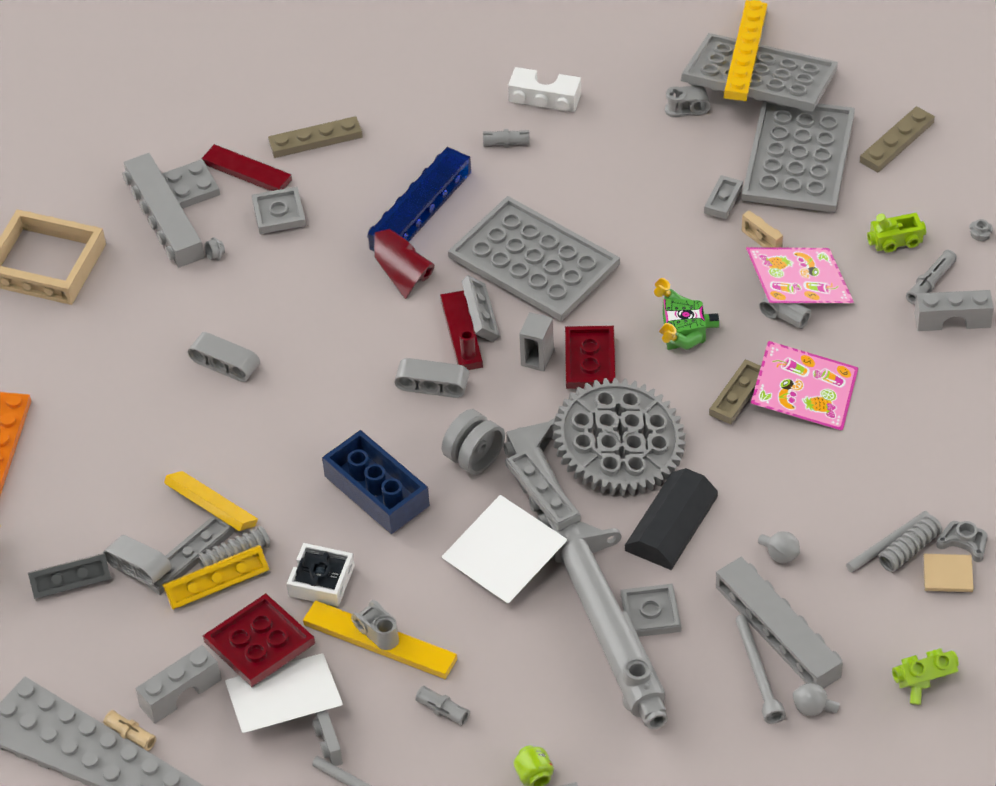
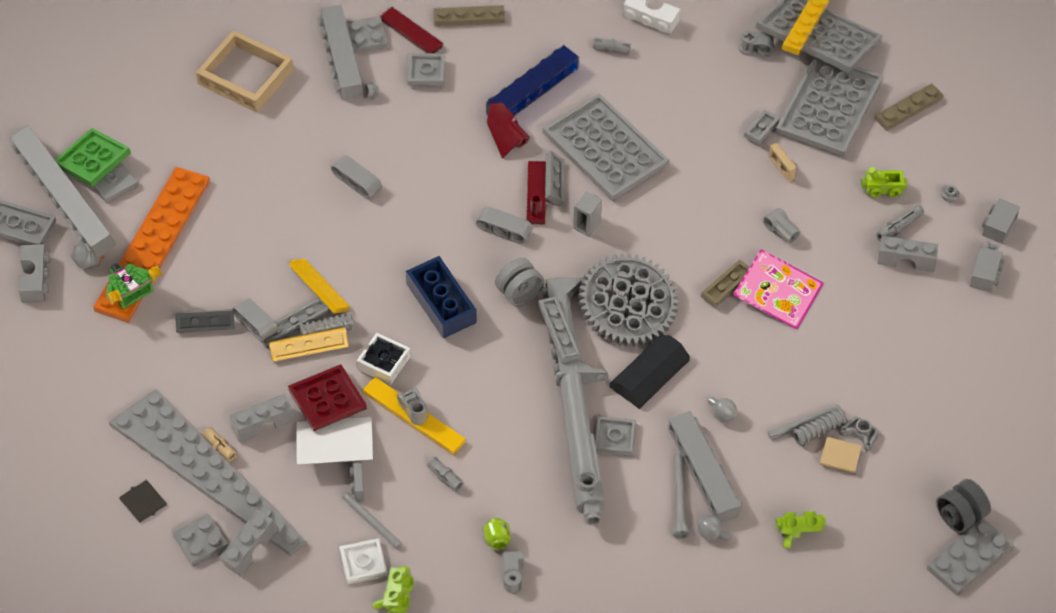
camera: 10 degrees right, 5 degrees up
(504, 548) = (520, 367): white sticker -> none
(589, 355) = (625, 232): dark red plate -> none
(683, 318) = (702, 218): torso -> none
(799, 275) = (800, 202): sticker -> none

